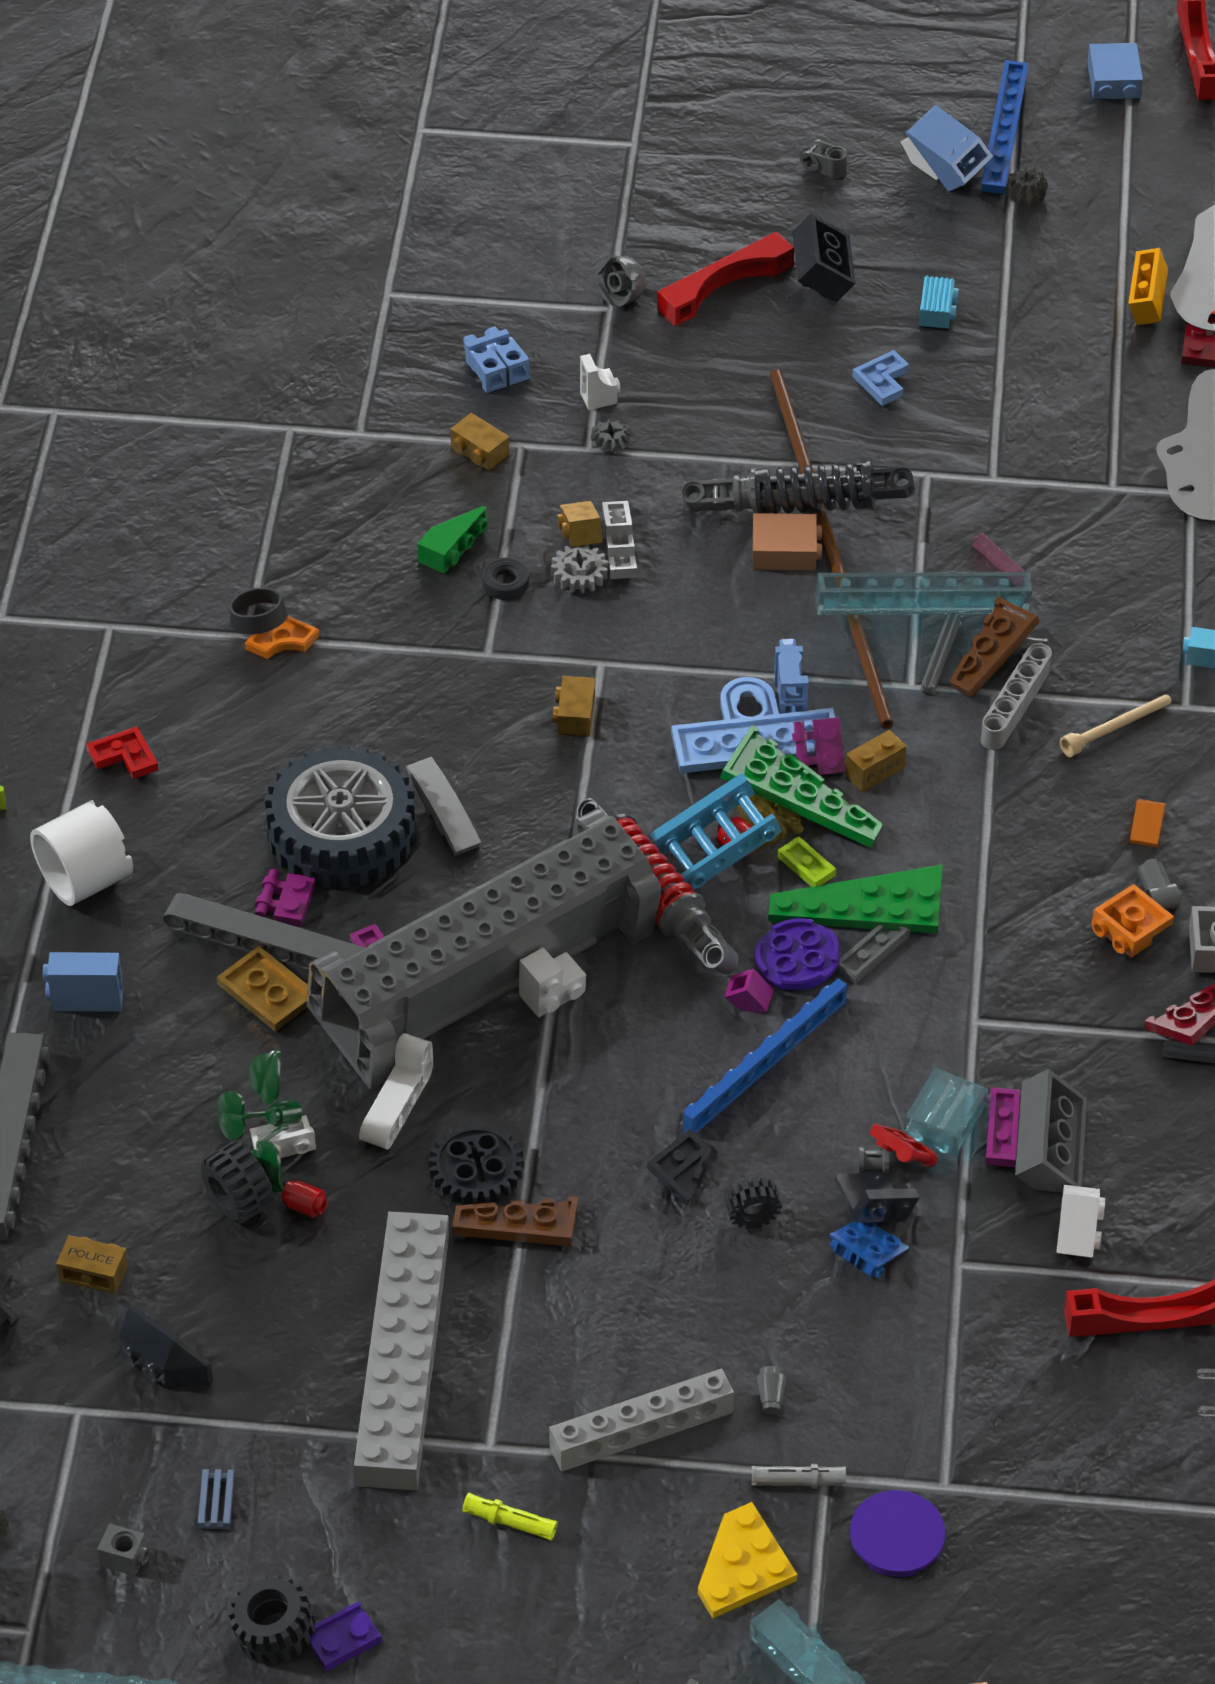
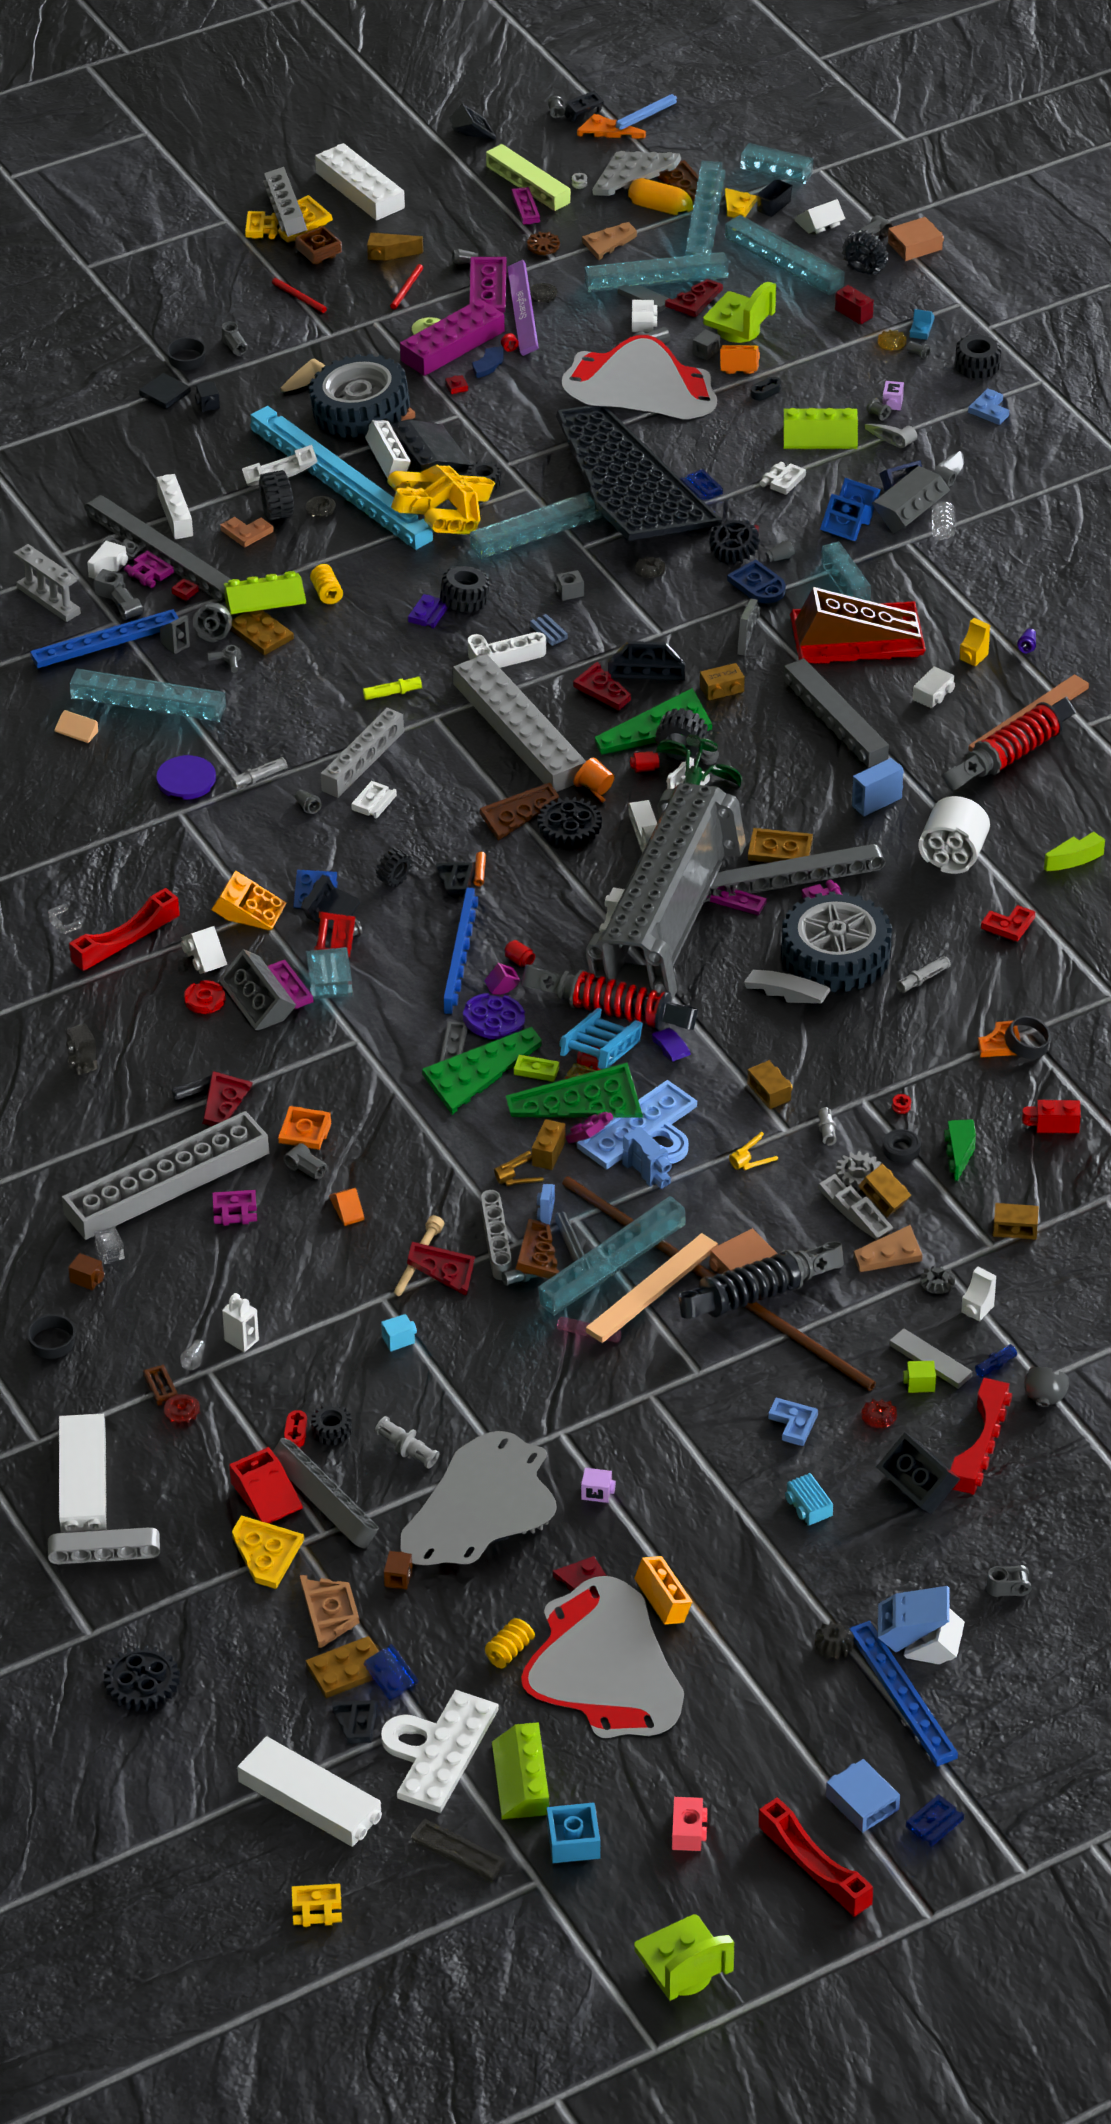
camera: 145 degrees right, 5 degrees down
(220, 1255) = (643, 727): none -> green wing
(242, 1352) = (602, 687): none -> dark red wing
(270, 1472) = (510, 650): none -> white beam
(290, 744) = (917, 977): none -> light grey pin
(326, 516) = (1053, 1116): none -> red brick
(390, 1193) = (595, 778): none -> orange hat
(457, 629) = (905, 1100): none -> red bush
(496, 359) = (1072, 1285): medium blue hips -> none
(561, 634) = (827, 1126): none -> light grey pin
(625, 483) = (889, 1251): none -> medium nougat wing
(635, 803) = (671, 1043): none -> dark purple slope
(638, 334) = (1002, 1357): none -> clear blue pin
(638, 1168) = (479, 869): none -> orange piece
(683, 645) = (741, 1157): none -> yellow plant
(685, 1342) = (373, 799): none -> white plate
(694, 371) = (919, 1350): none -> light grey tile
(700, 1013) = (519, 953): none -> red brick
(725, 352) = (920, 1376): none -> lime brick
(743, 1563) = (255, 729): yellow plate -> none
(799, 355) = (875, 1419): none -> clear red gear
(909, 552) = (651, 1288): none -> light nougat tile
(943, 689) = (546, 1202): none -> medium blue plate
(947, 759) = (506, 1172): none -> pearl gold plant
(970, 1271) = (248, 903): none -> light orange slope
(1070, 31) = (934, 1820): none -> clear blue plate
(1100, 690) = (443, 1265): none -> dark red wing
(1116, 1174) = (204, 997): none -> red tile
(1126, 409) = (597, 1485): none -> lavender brick

